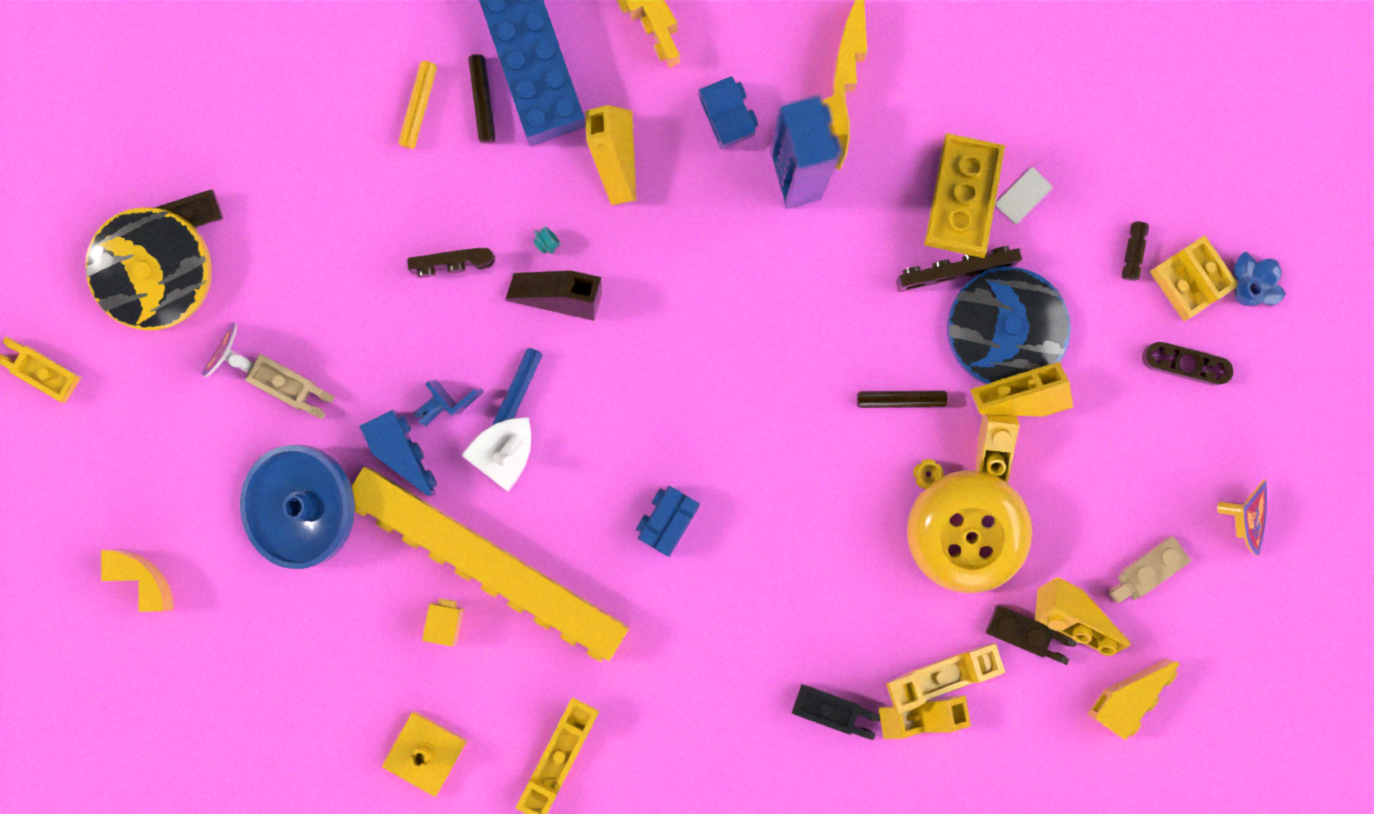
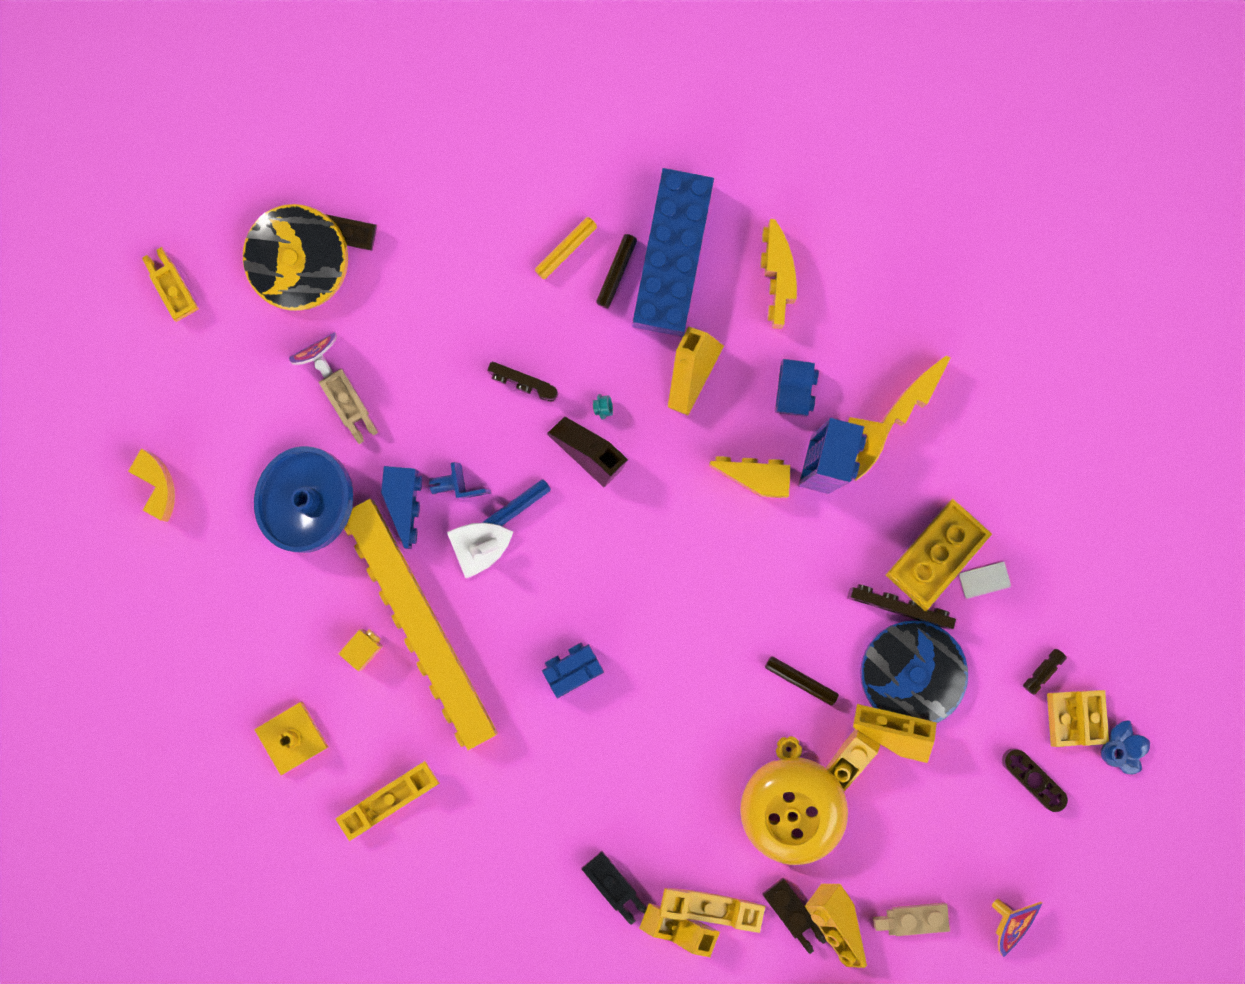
camera: 30 degrees right, 0 degrees up
(744, 222) = (760, 478): none -> yellow slope

